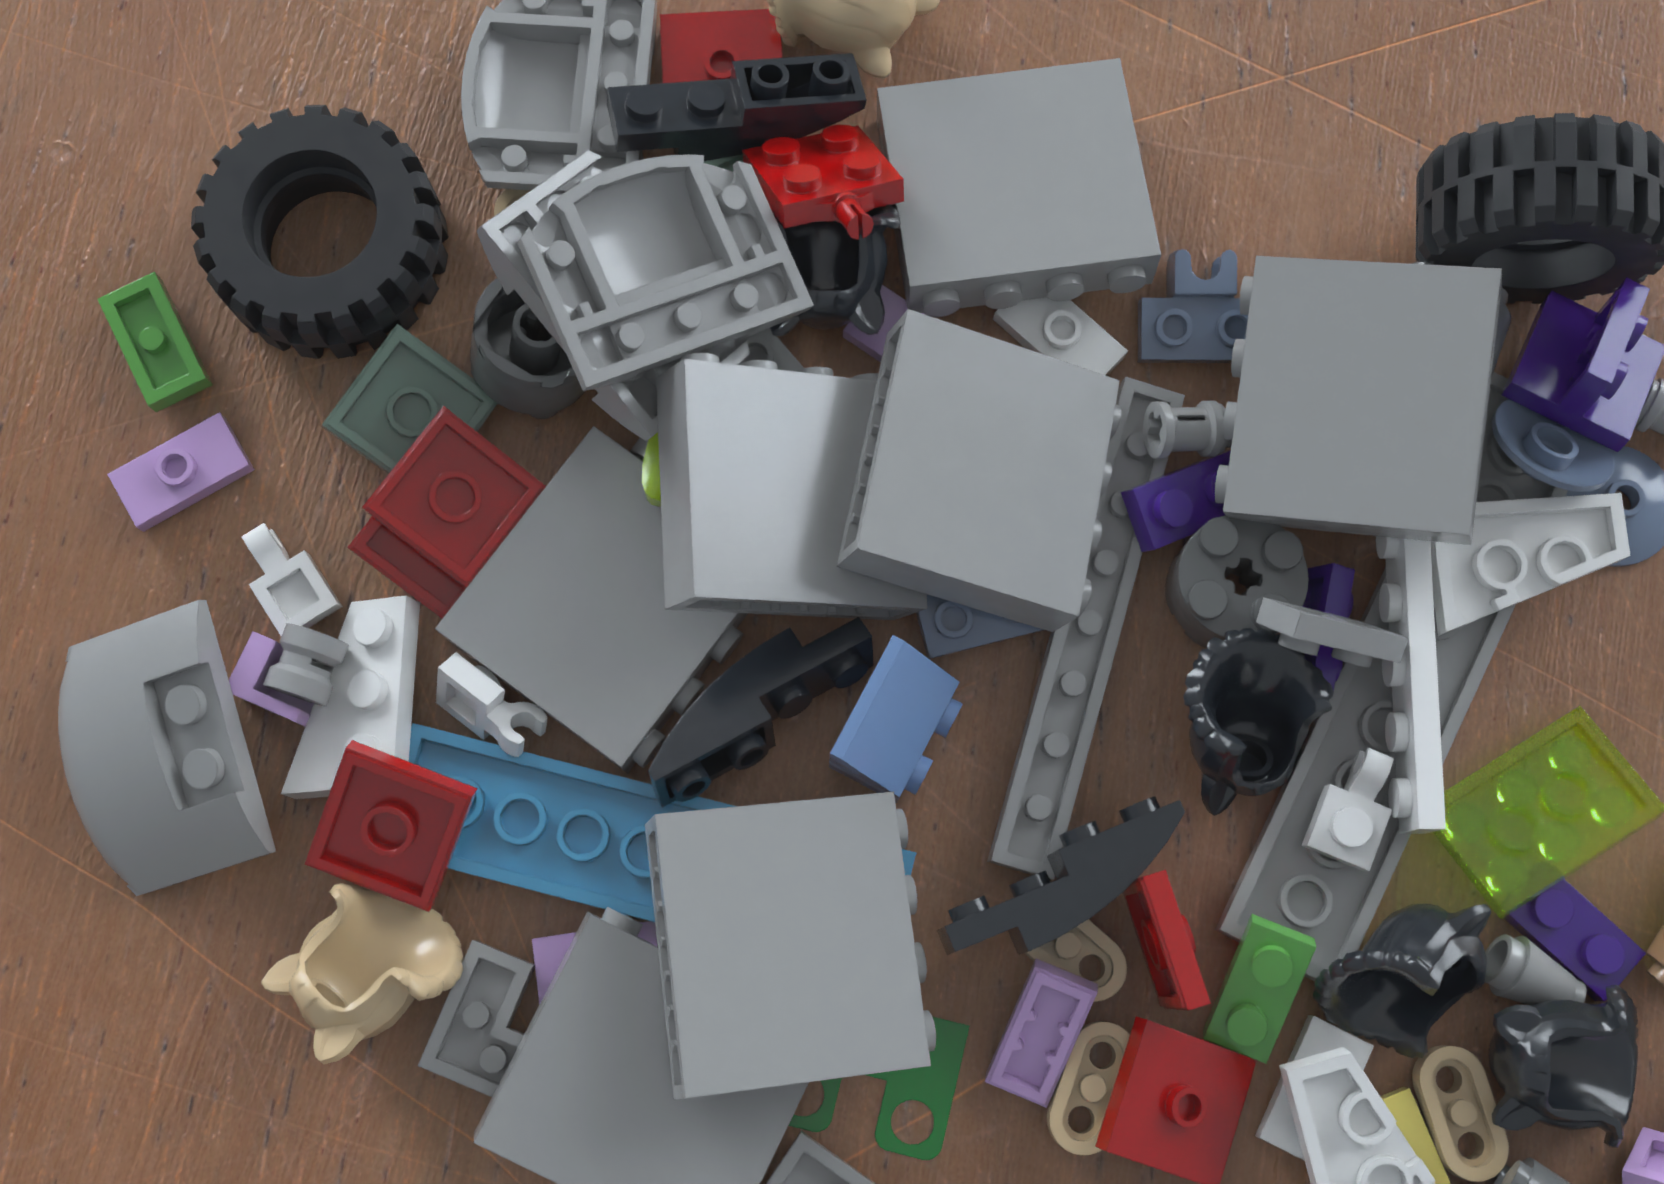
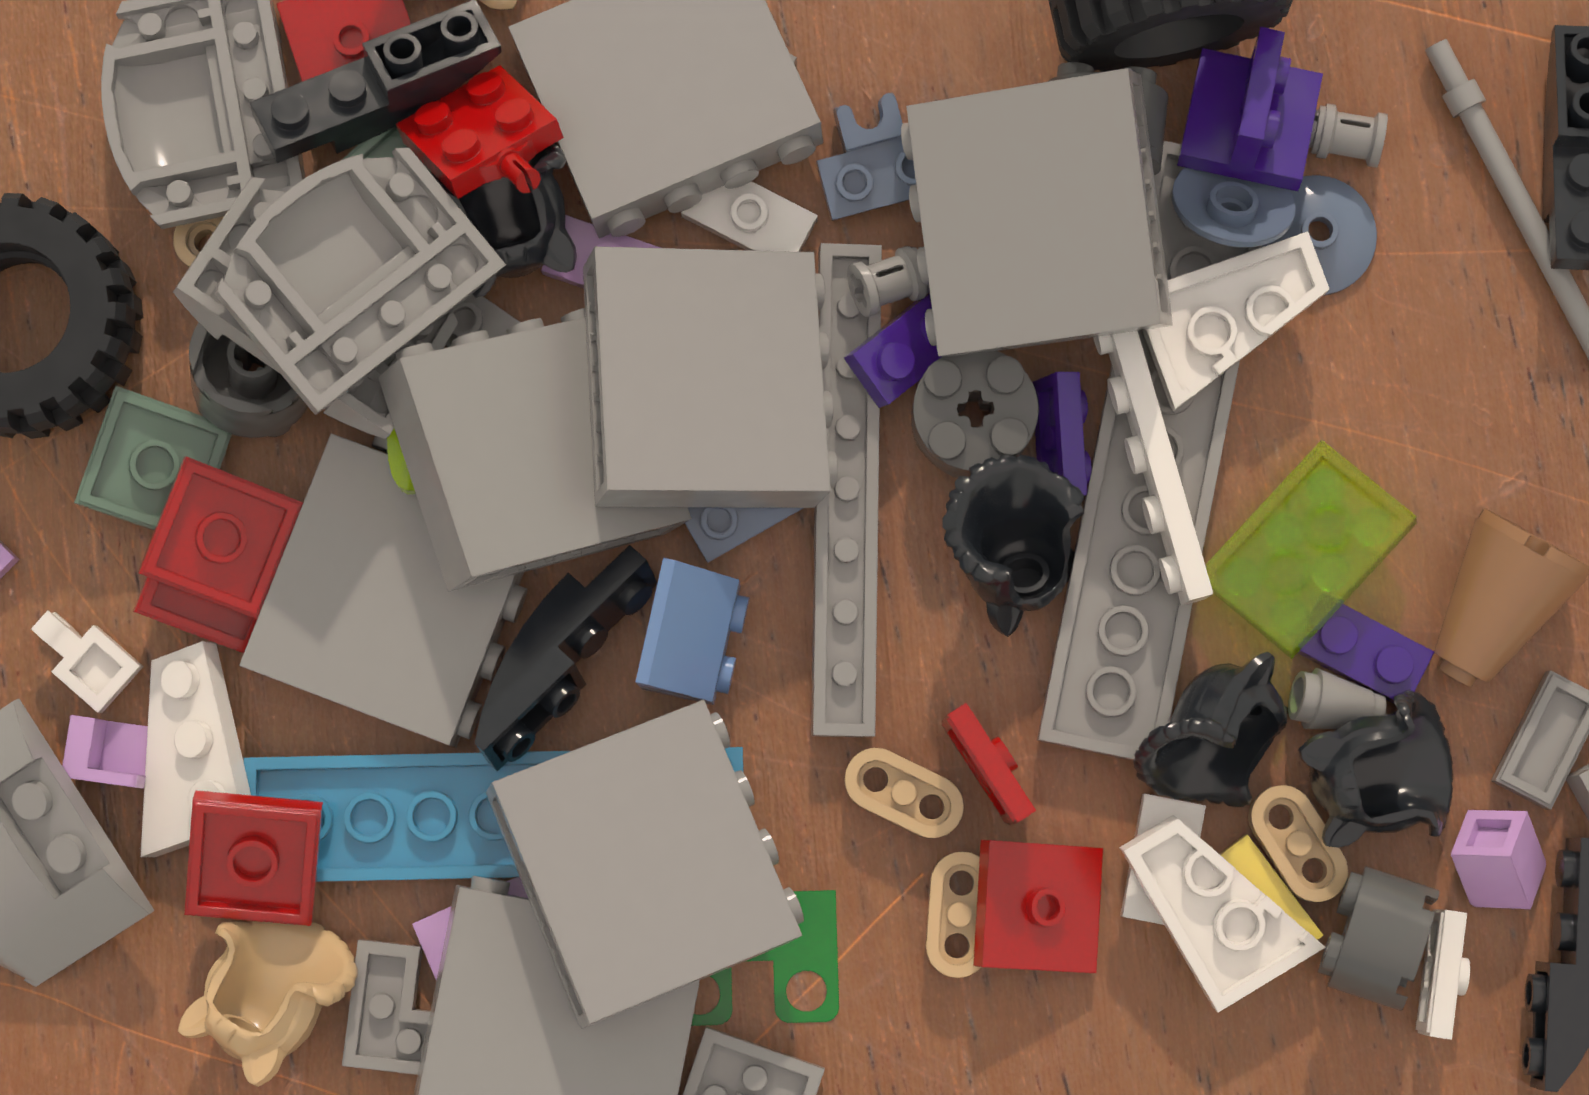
camera: 10 degrees left, 5 degrees up
(306, 664) = (129, 732): light grey wheel -> none
(478, 703) = (298, 721): white plate -> none
(1041, 1032) = (900, 878): lavender plate -> none
(1089, 875) = (904, 720): black slope -> none
(1259, 988) = (1087, 783): bright green plate -> none
(1347, 820) = (1129, 608): white plate -> none
(1351, 639) = (1086, 441): light grey plate -> none

